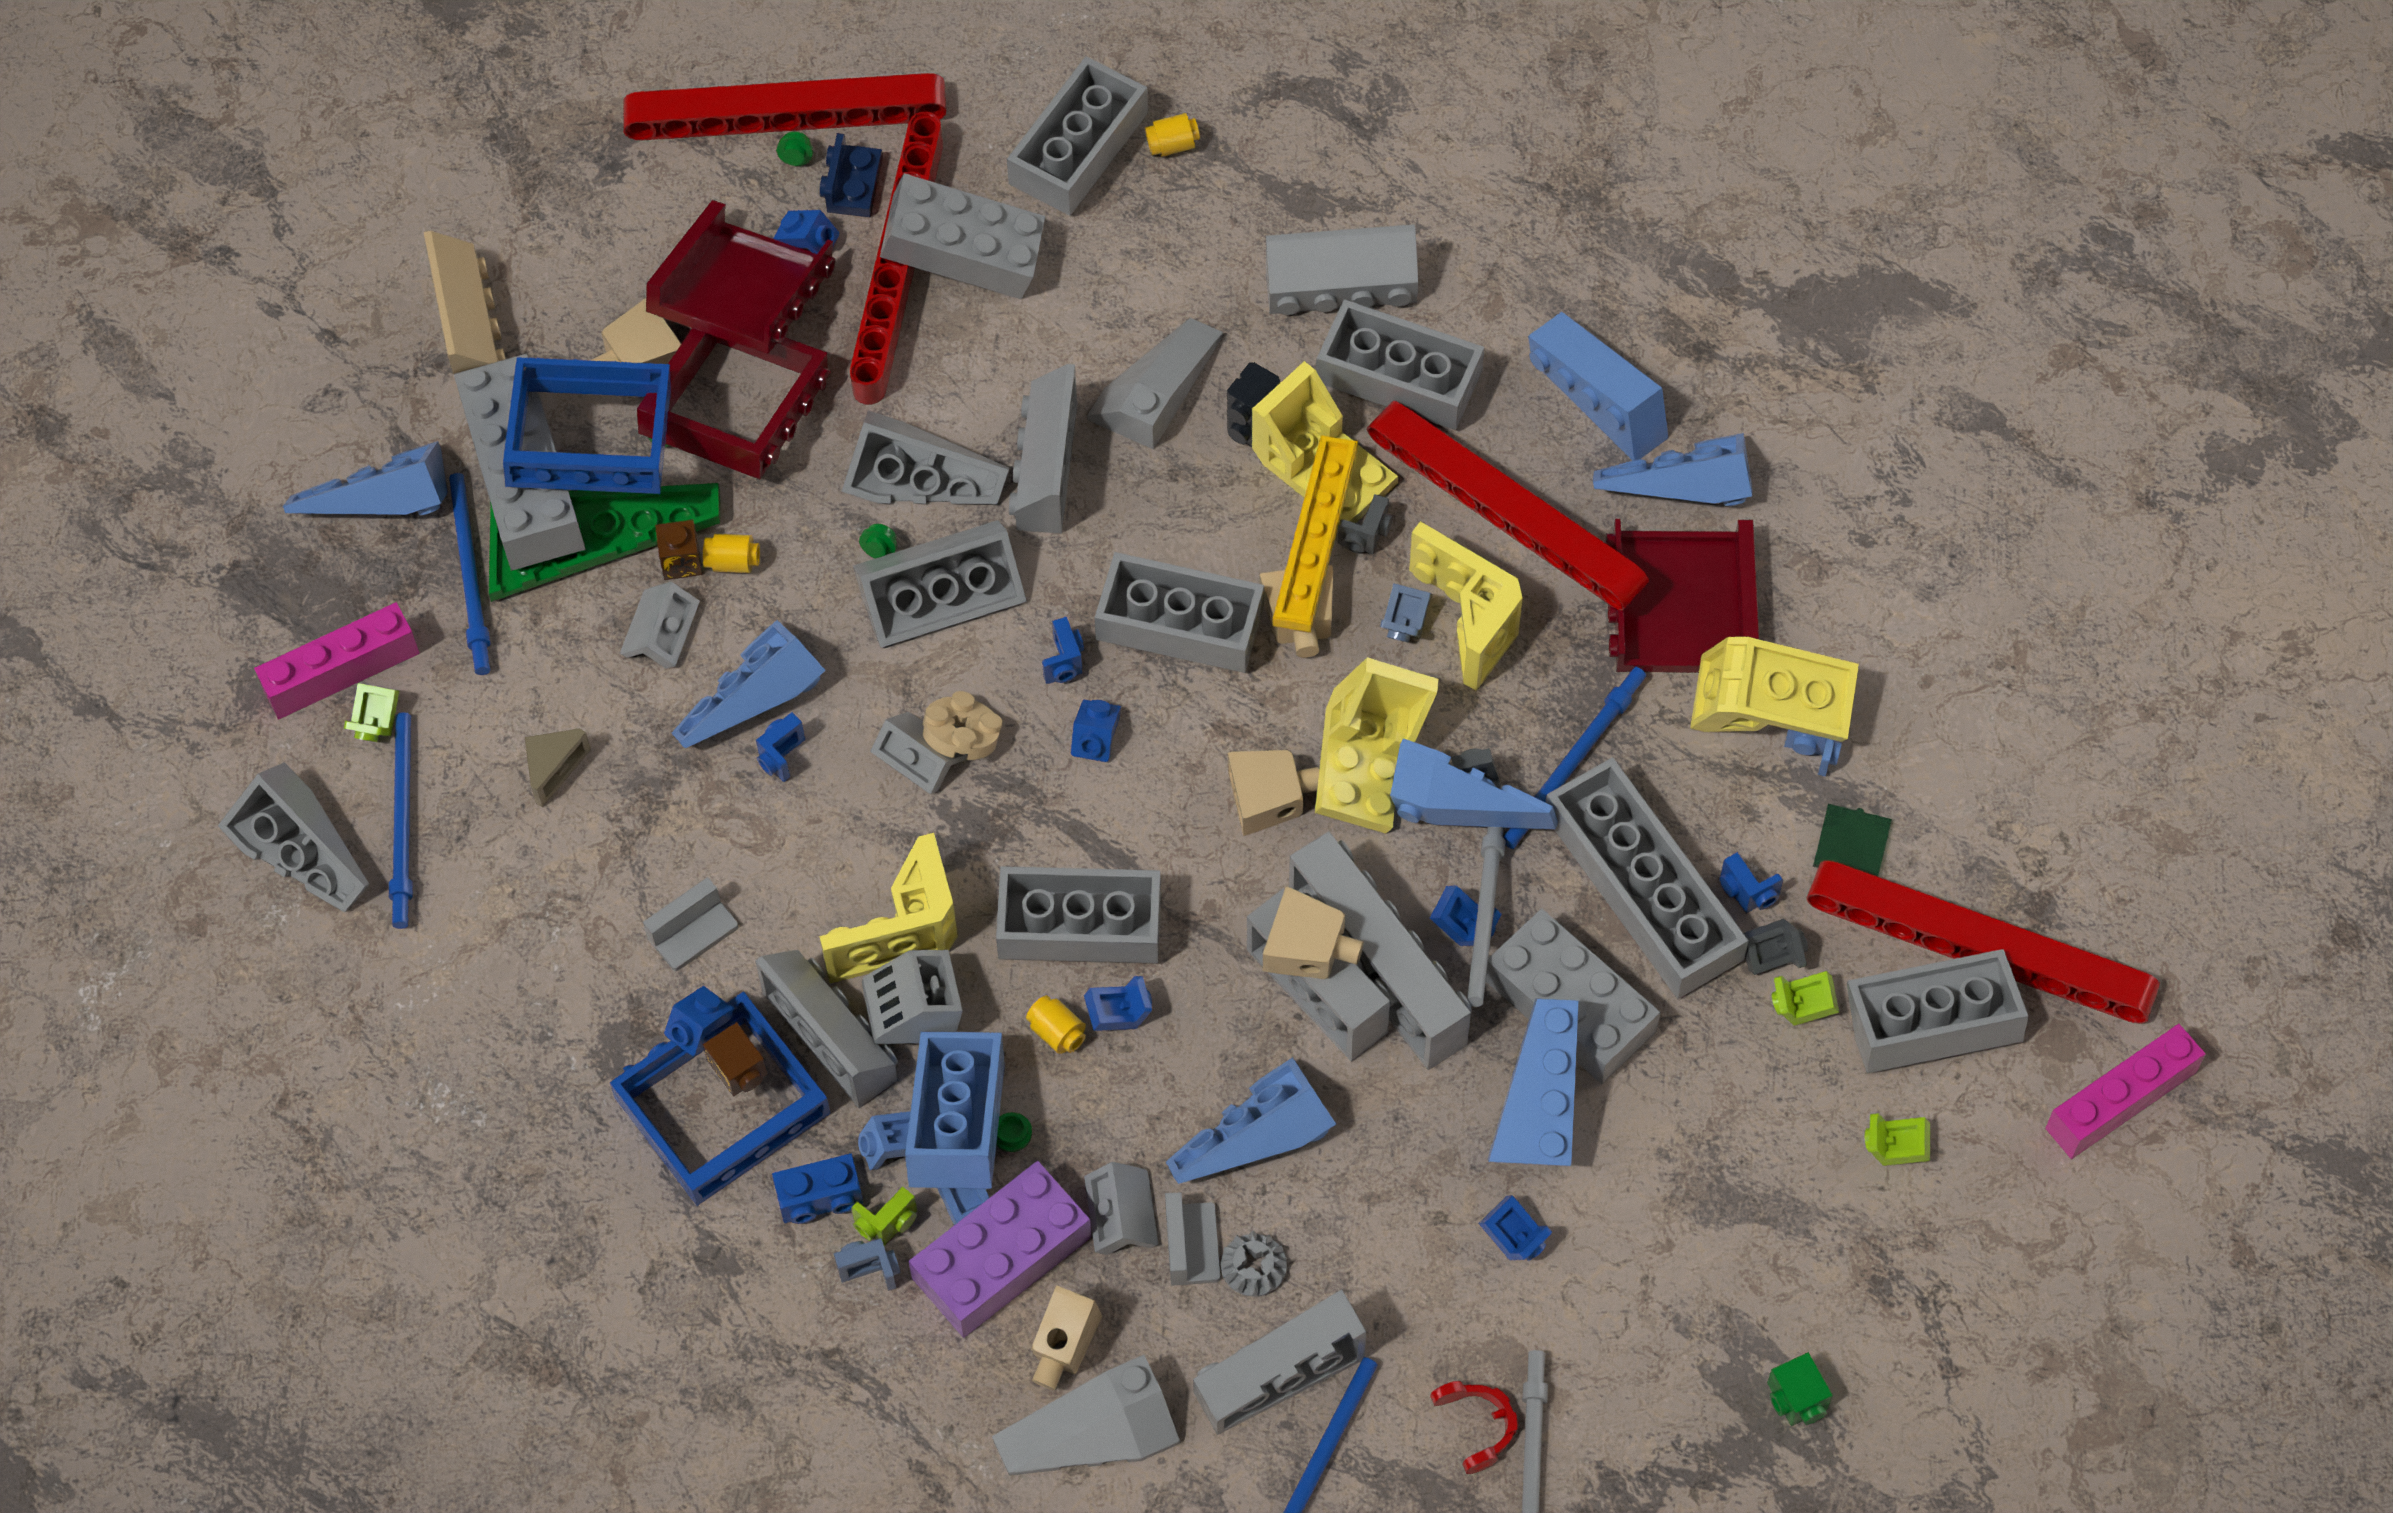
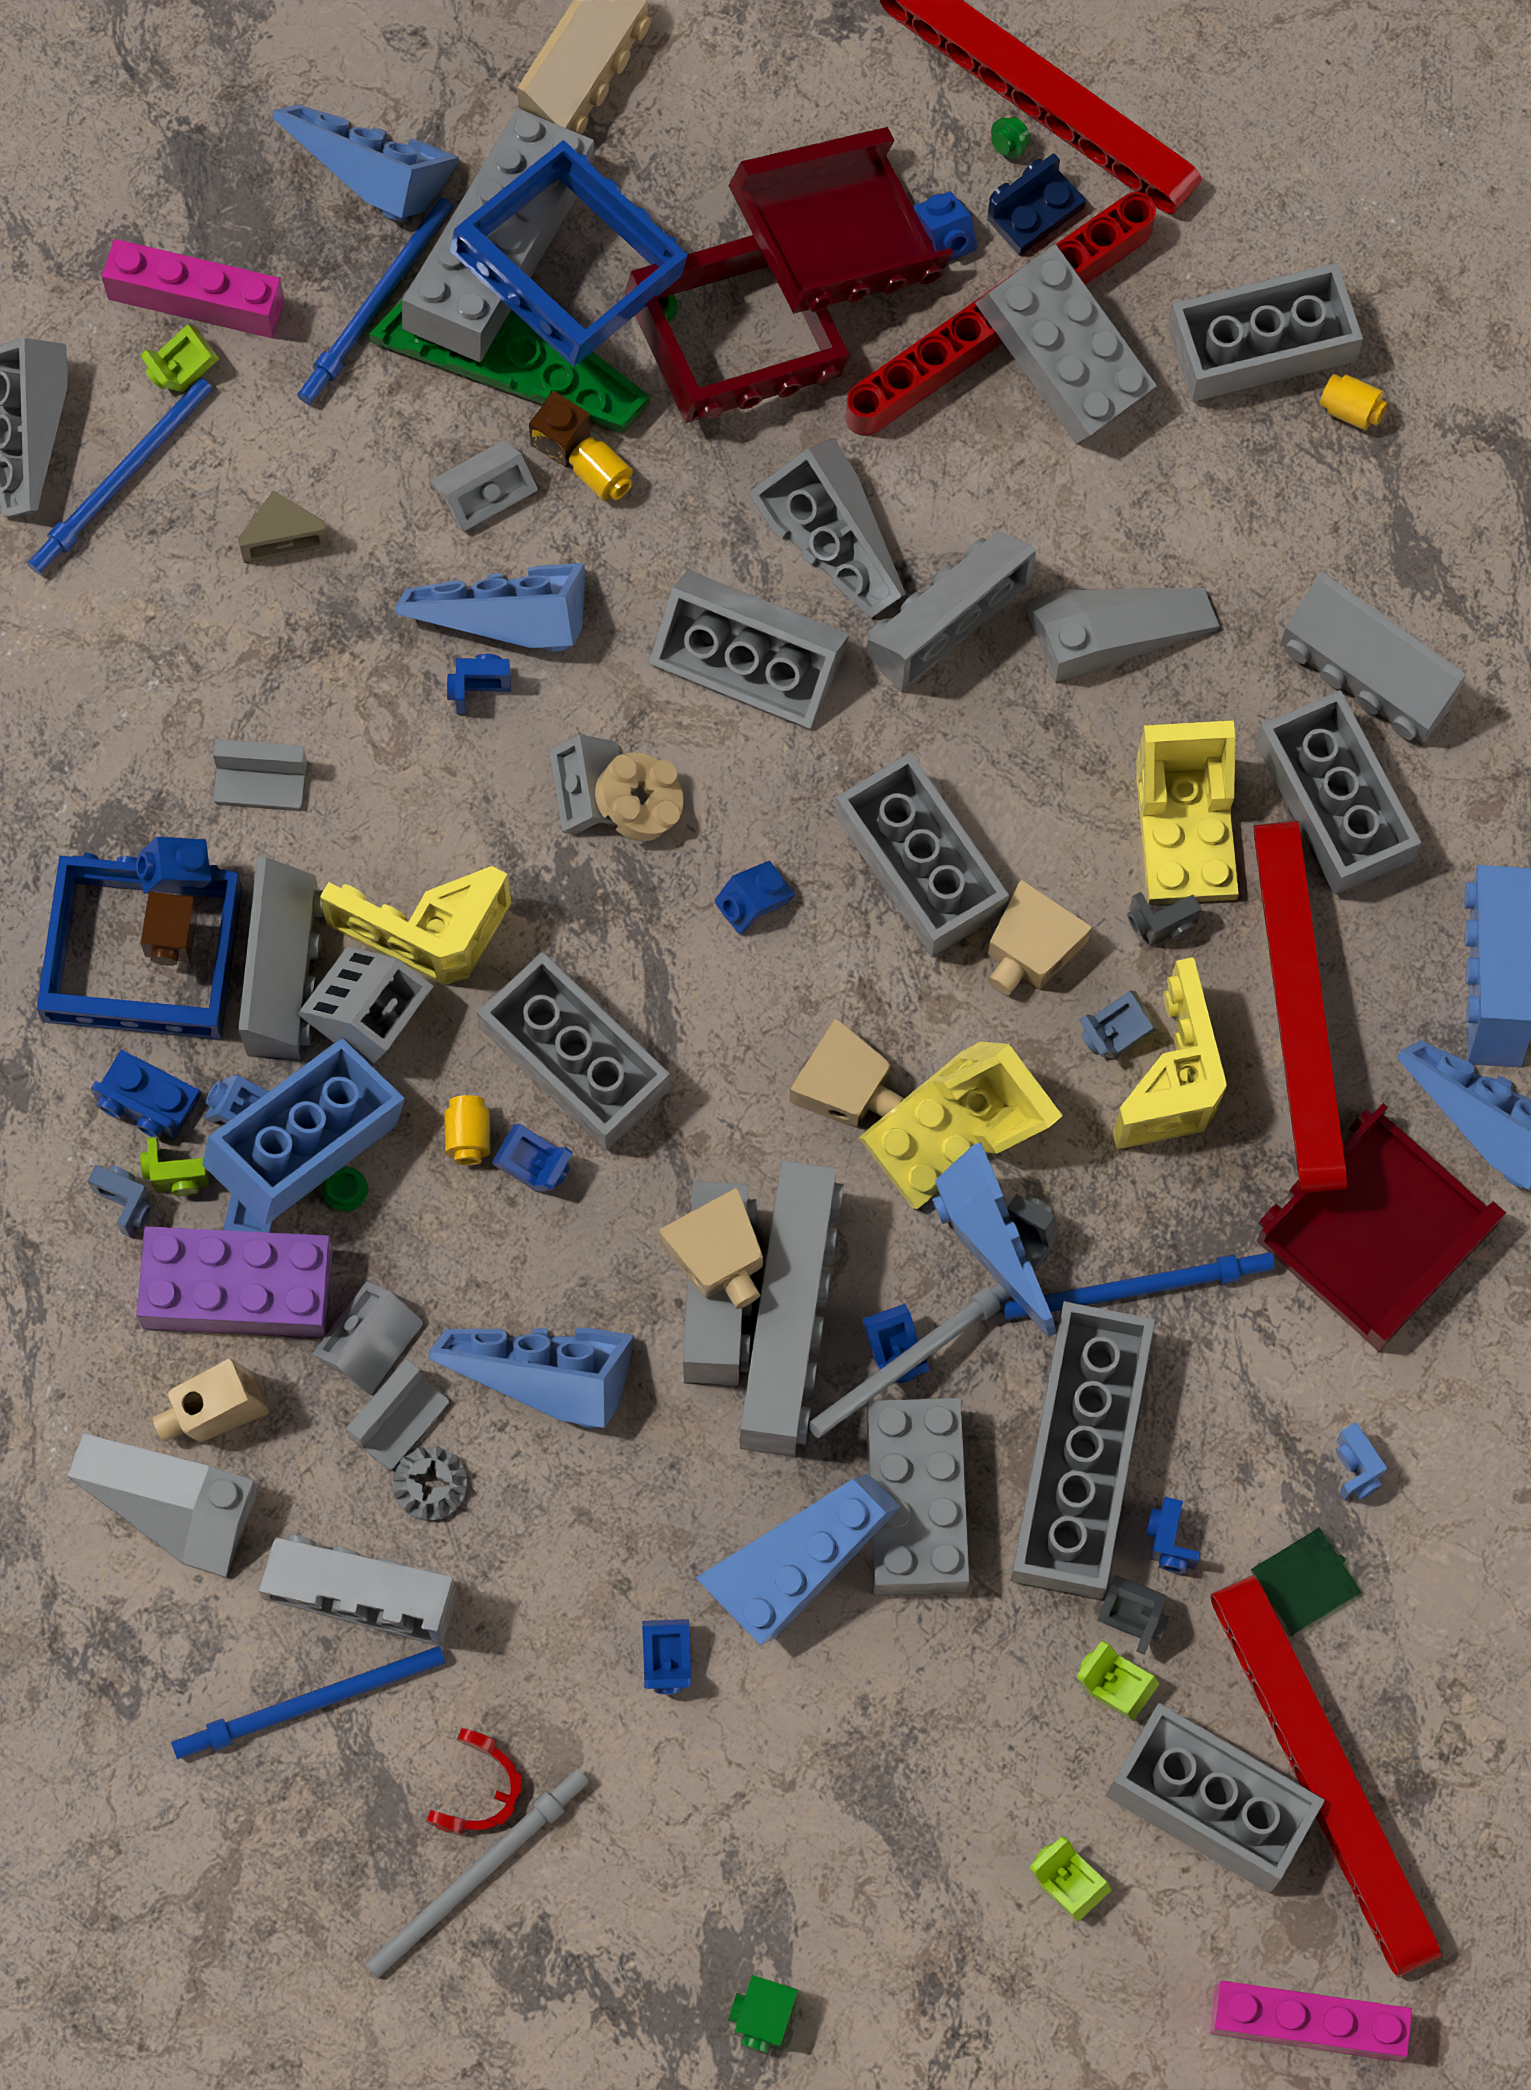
camera: 40 degrees right, 10 degrees up
(639, 338) = (699, 211): tan torso -> none
(878, 540) = (734, 566): green plate -> none
(1068, 662) = (802, 800): blue bracket -> none
(1245, 394) = (1165, 706): black brick -> none
(1315, 534) = (1104, 885): yellow tile -> none
(1762, 683) = (1360, 1390): light yellow bracket -> none

